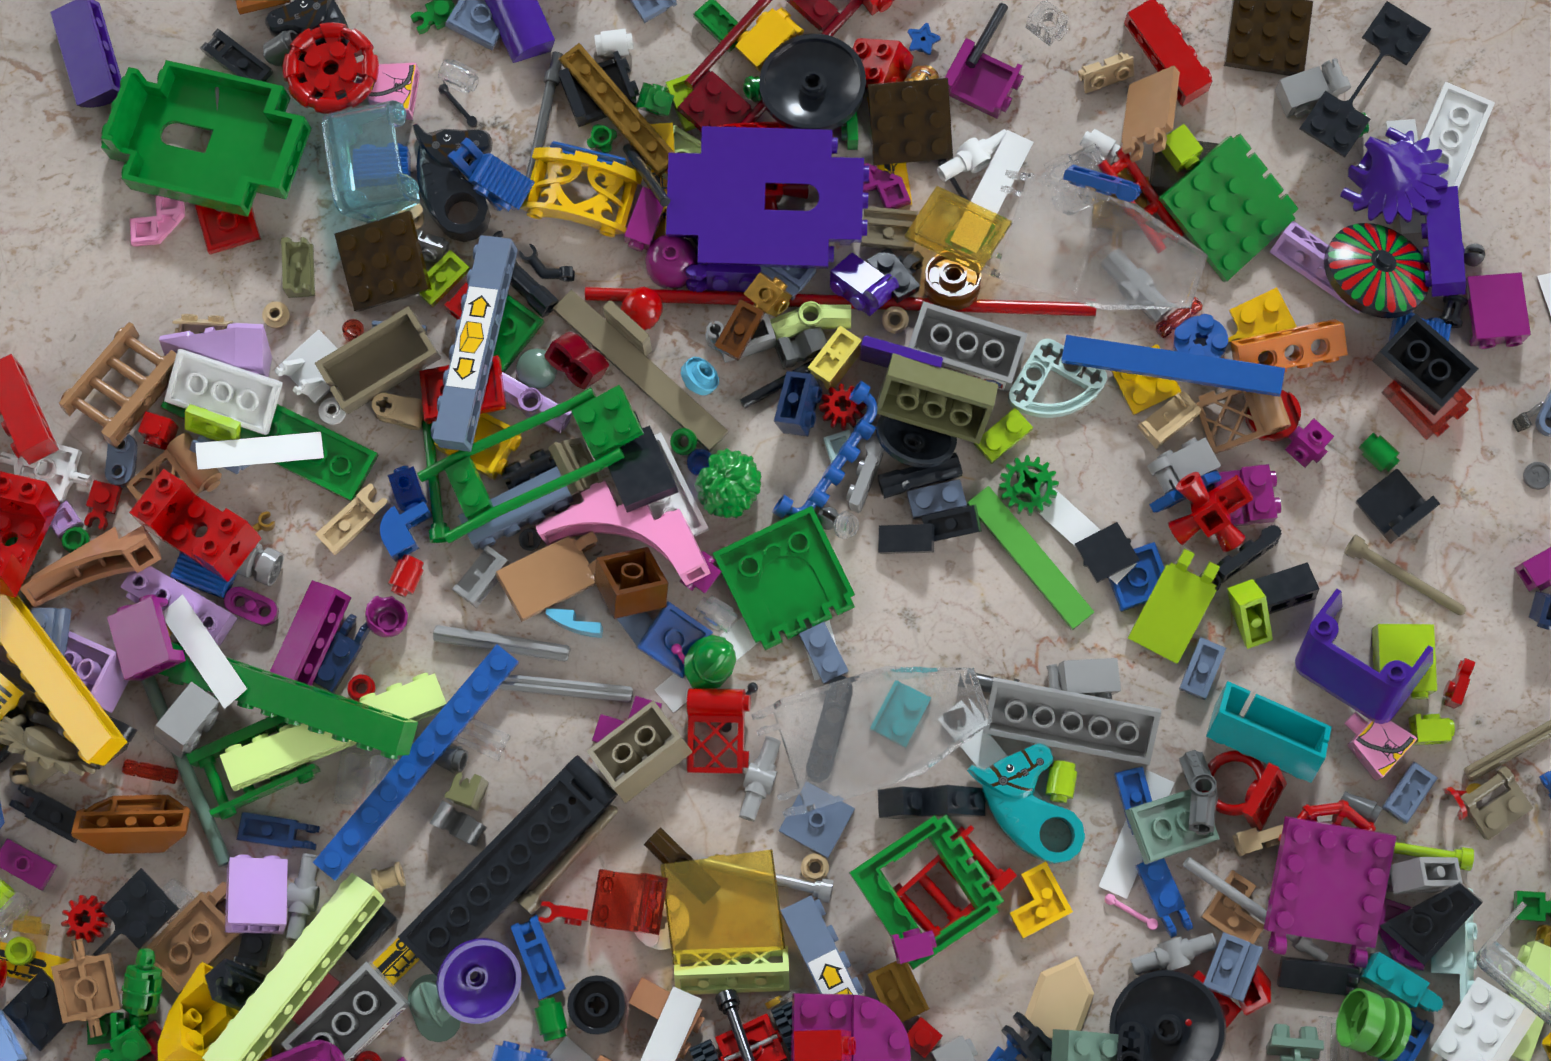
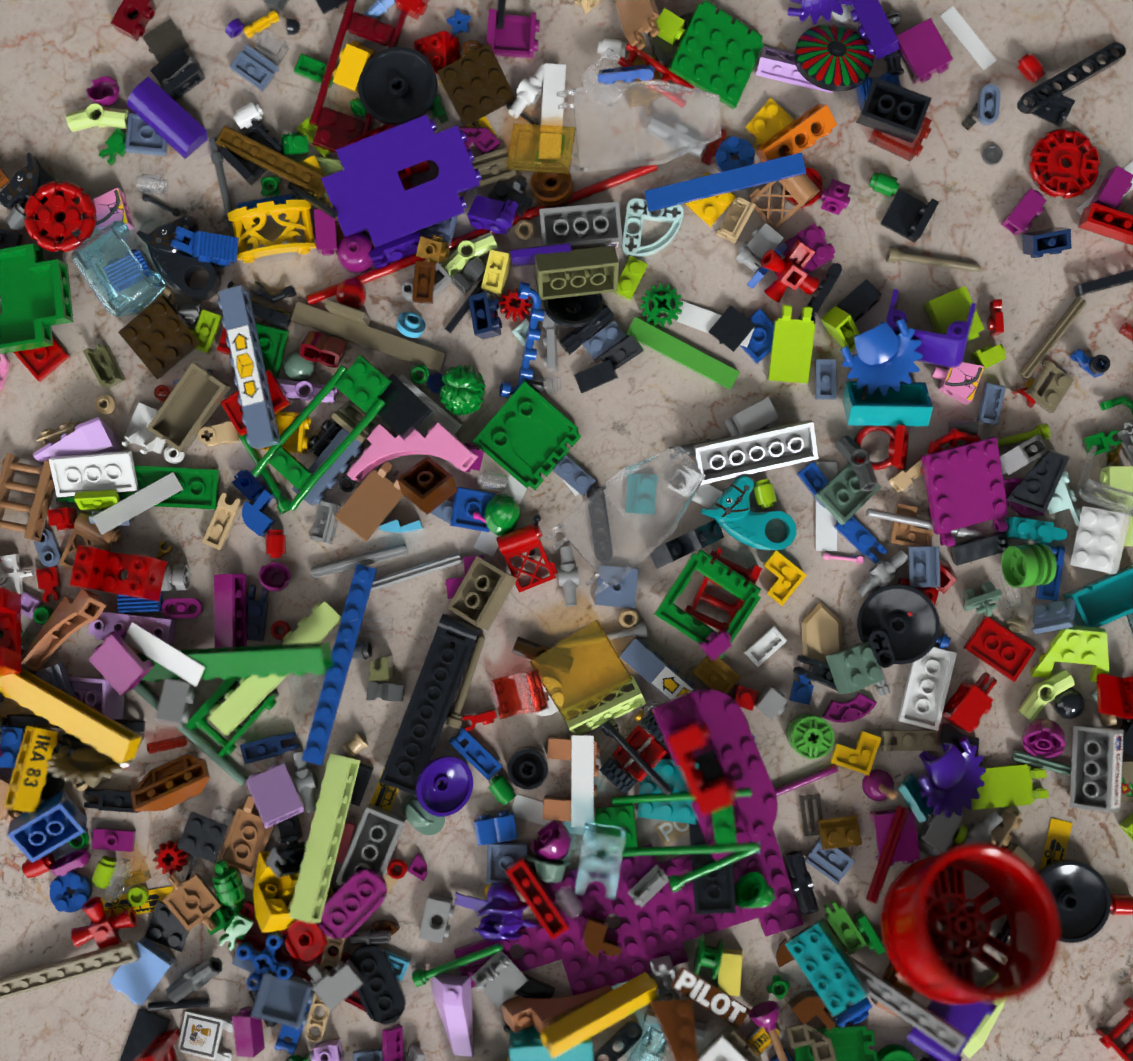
camera: 25 degrees left, 10 degrees up
(979, 983) = (765, 646): none -> white plate
(1286, 669) = (883, 357): none -> blue piece

